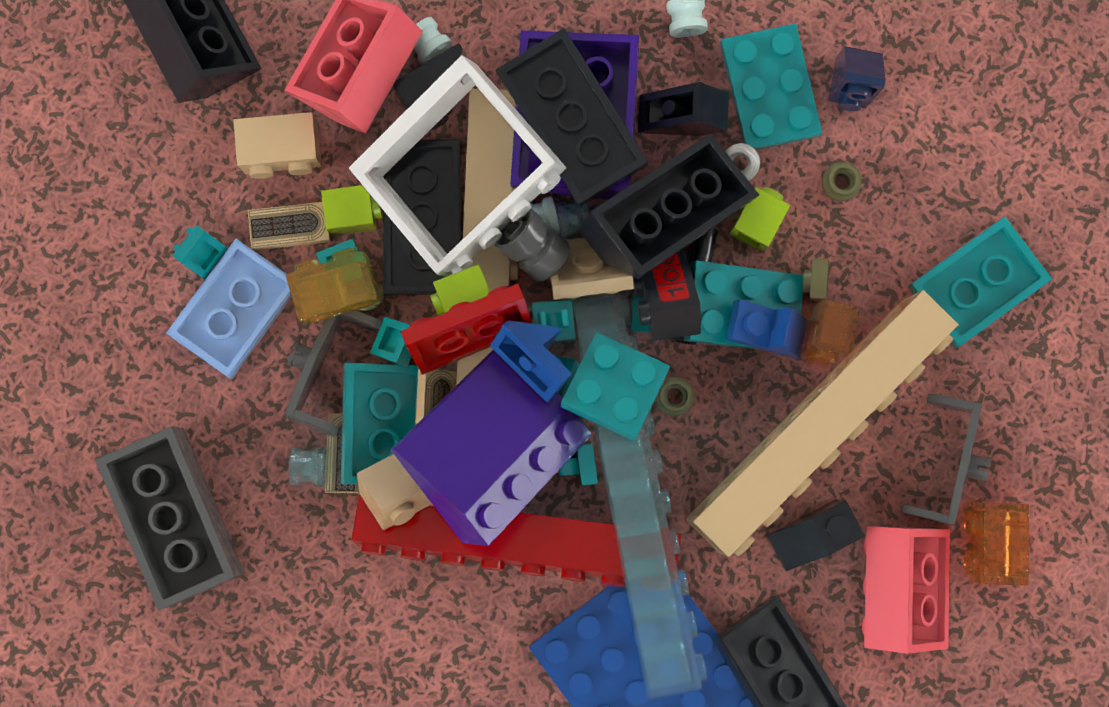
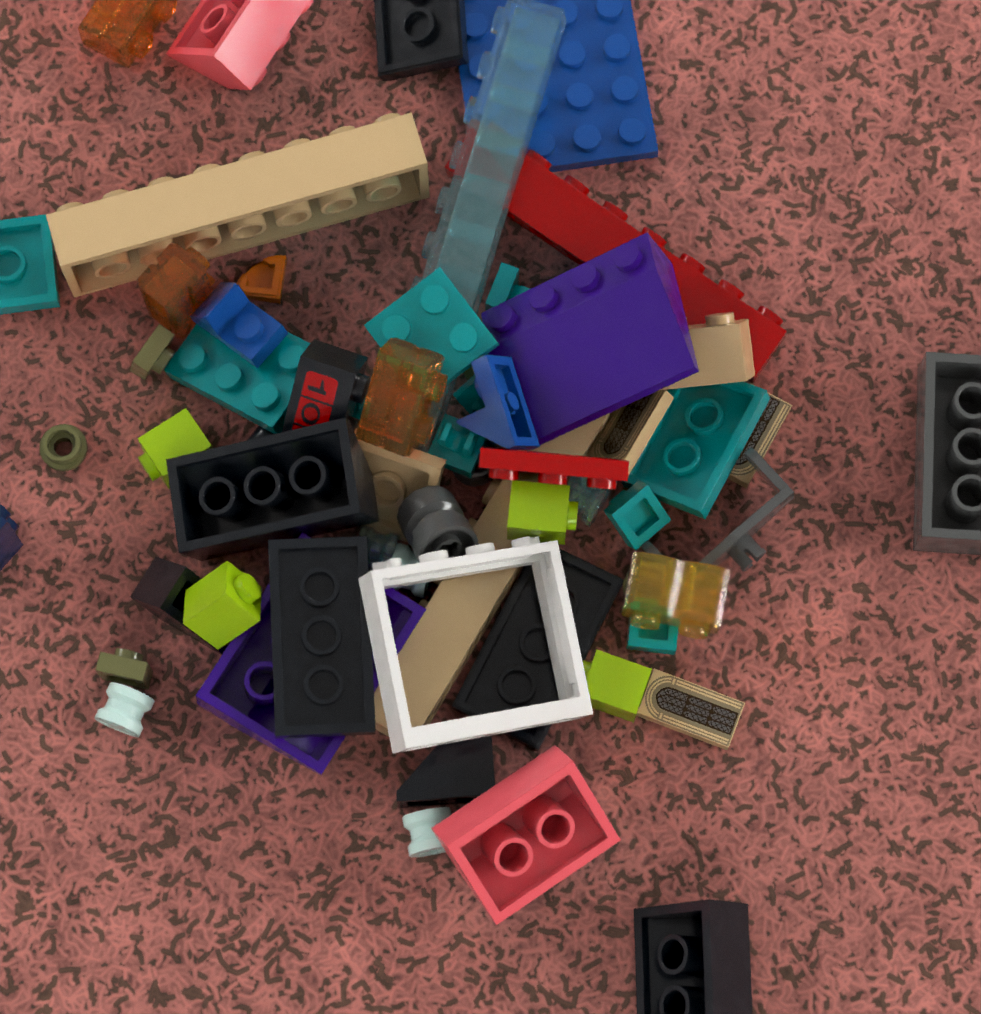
camera: 145 degrees left, 10 degrees down
(199, 251) = (804, 725): teal tile -> none
(232, 309) = (796, 650): light blue tile -> none
(277, 144) = (658, 800): tan brick -> none
(307, 466) = (796, 438): clear light blue wheel -> none
(610, 320) = (401, 397): none -> clear orange brick
(655, 105) = (222, 605): none -> lime brick
(686, 391) = (359, 309): olive plate -> none
(703, 43) = (124, 668): none -> olive plate
(751, 156) = (161, 509): white plate -> none
(771, 87) = (77, 587): teal plate -> none
(771, 385) = (265, 280): none -> orange tile
(816, 535) = (302, 108): black slope -> none
(968, 463) = (113, 94): dark grey piece -> none

